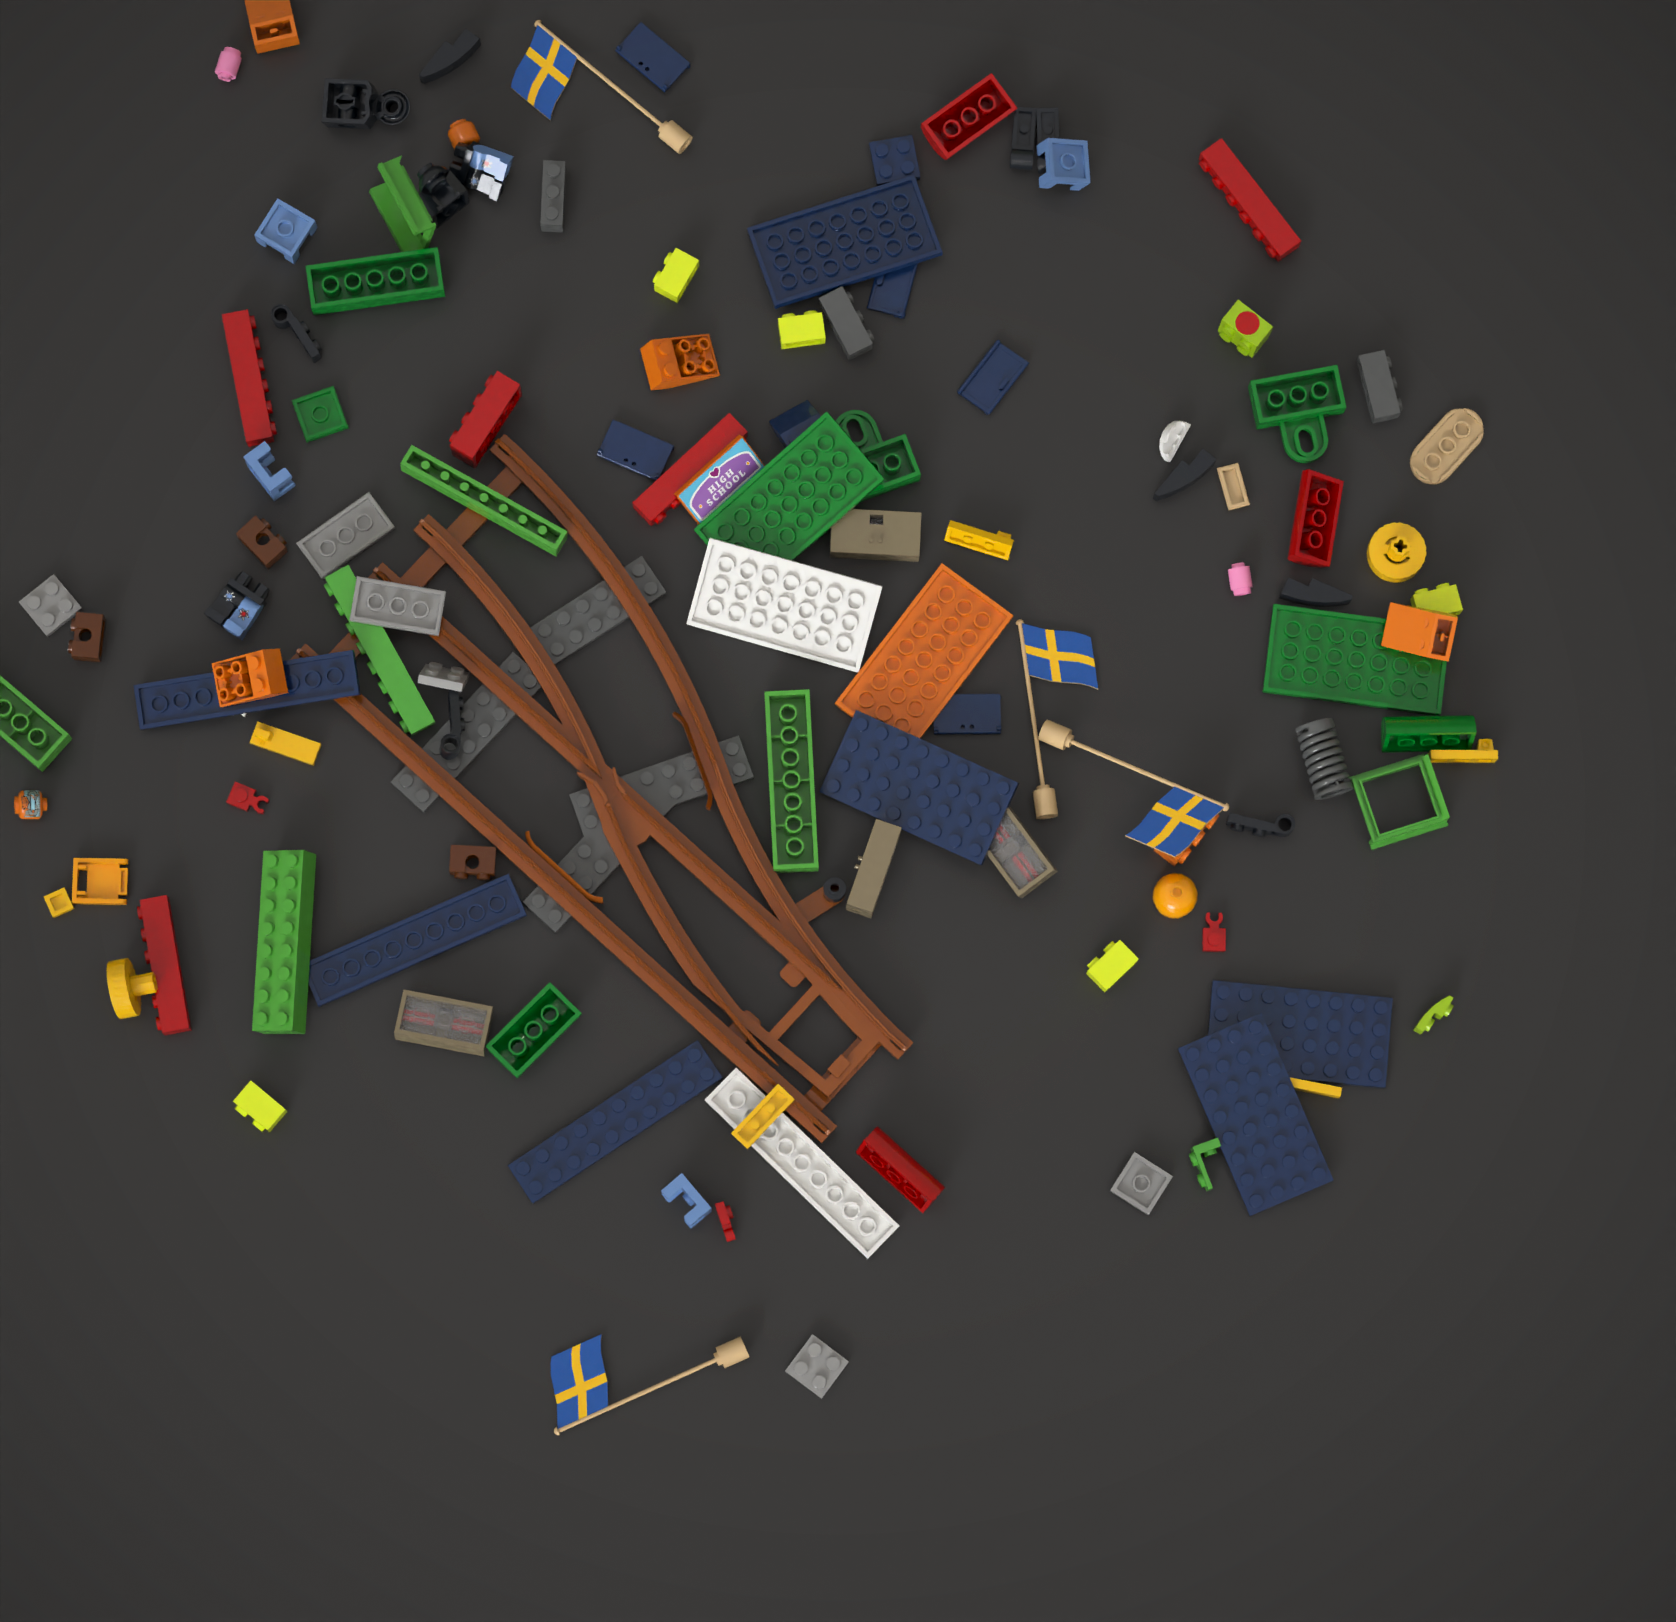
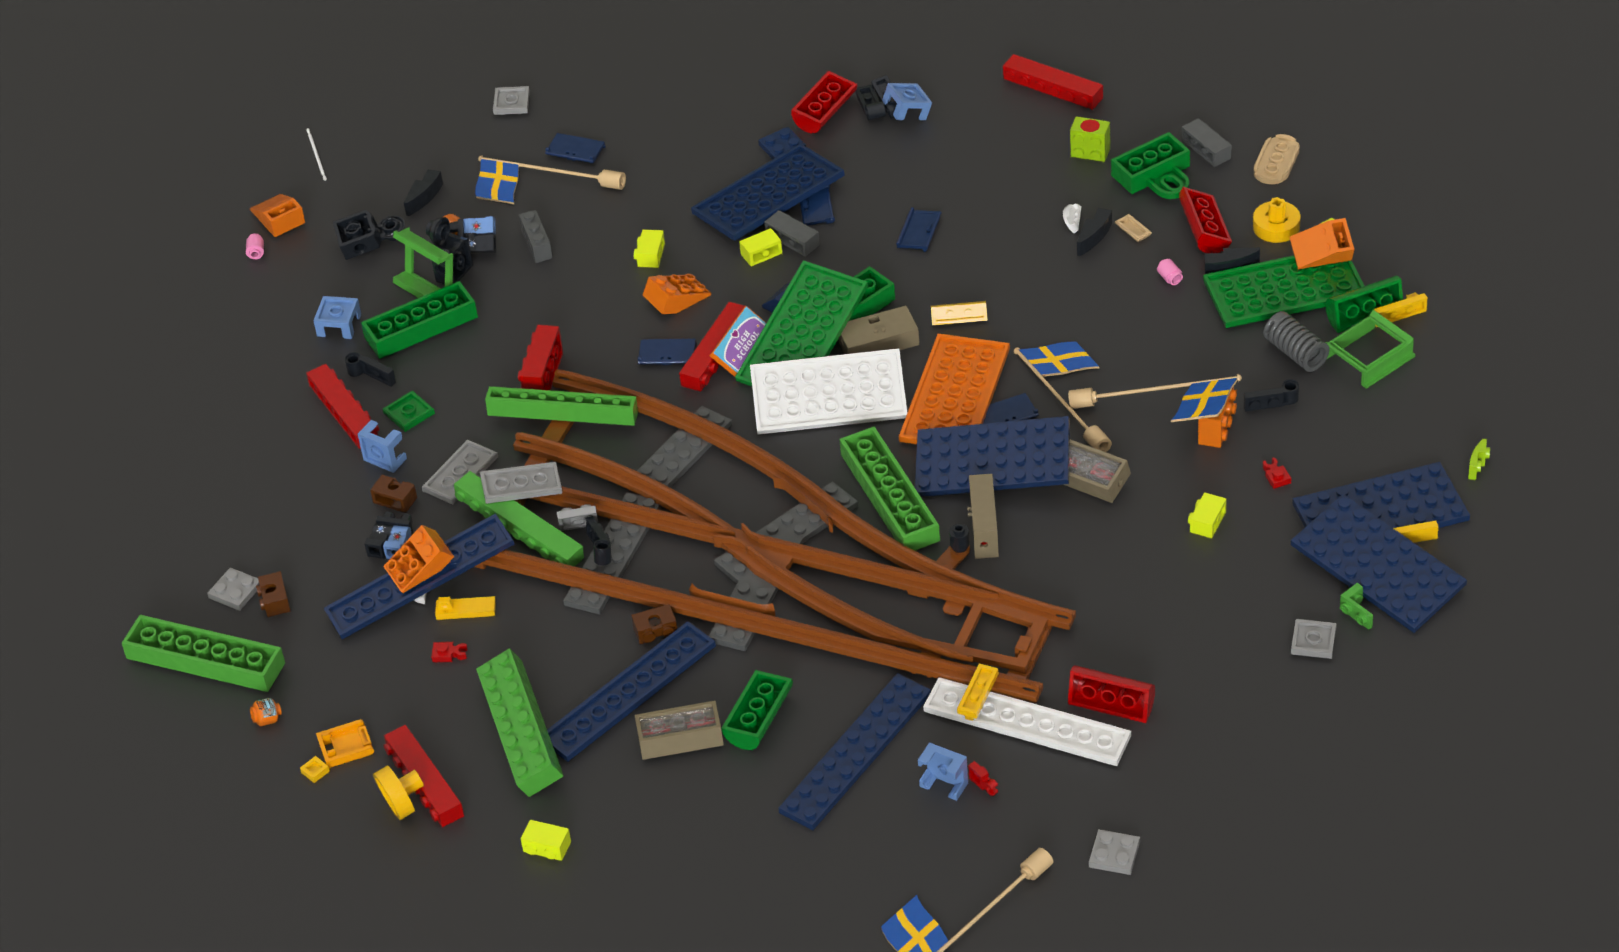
camera: 10 degrees left, 35 degrees down
(1175, 895) = (1231, 459): light orange cylinder -> none

